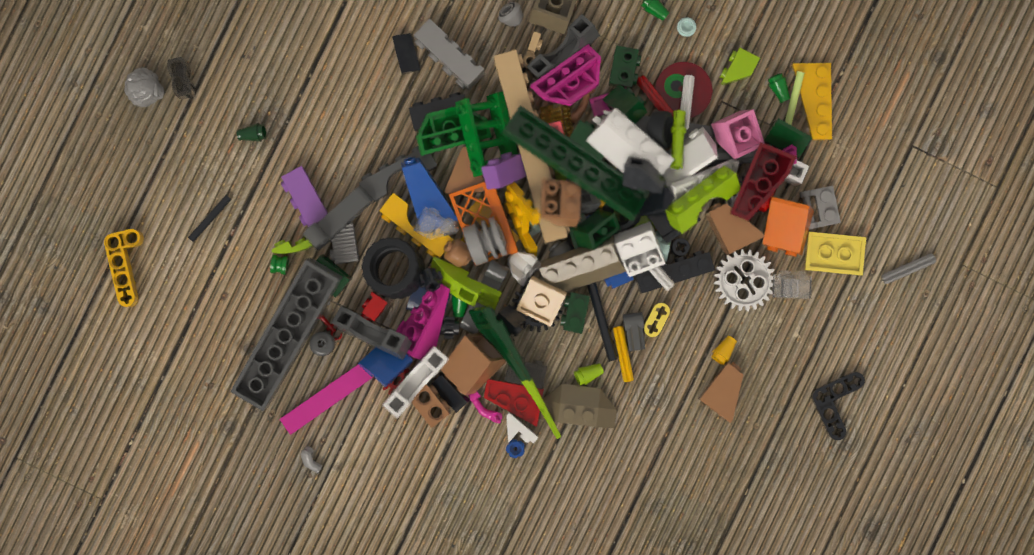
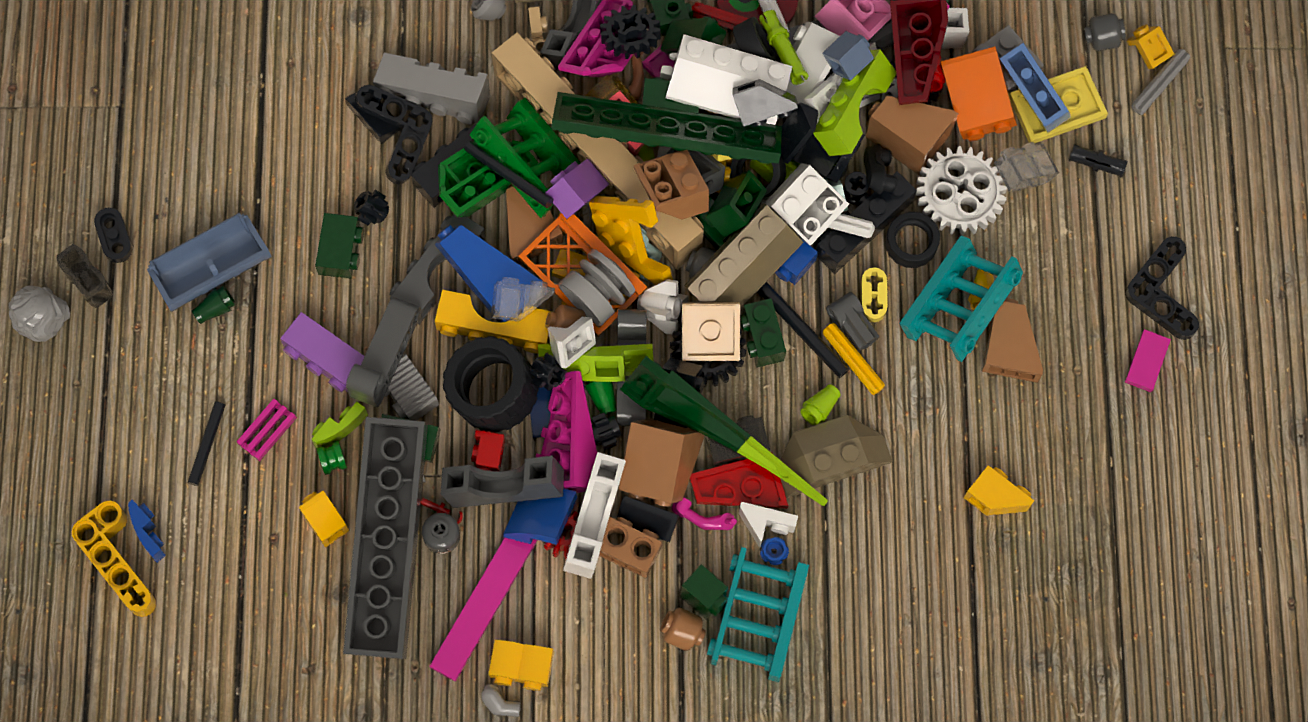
camera: 30 degrees left, 15 degrees down
(149, 250) = (142, 525): none -> blue slope
(210, 58) = (113, 237): none -> black plate
(234, 233) = (259, 421): none -> dark pink tile
(256, 301) = (323, 518): none -> yellow slope
(260, 104) = (207, 260): none -> sand blue container
(332, 444) = (521, 664): none -> yellow brick
(344, 131) = (338, 246): none -> dark green brick
(375, 116) = (371, 207): none -> black gear
(422, 75) = (408, 131): none -> black beam
(437, 470) = (682, 629): none -> medium nougat head
(451, 271) = (572, 342): none -> white slope
(459, 457) = (704, 592): none -> dark green brick
(465, 142) = (508, 174): none -> black bar
(492, 500) = (779, 634): none -> teal fence
(590, 78) = (630, 32): none -> black gear
(663, 479) = (997, 495): none -> yellow slope
(693, 252) = (875, 161): none -> black piece
(706, 333) = (947, 278): none -> teal fence
(712, 297) = (915, 219): none -> black tyre
(713, 169) = (848, 55): none -> sand blue brick
(801, 442) = (1147, 360): none -> dark pink tile
(823, 240) = (1035, 87): none -> medium blue brick
(840, 301) = (1098, 160): none -> black pin
(890, 220) = (1105, 32): none -> dark grey head
(915, 242) = (1151, 45): none -> yellow bracket

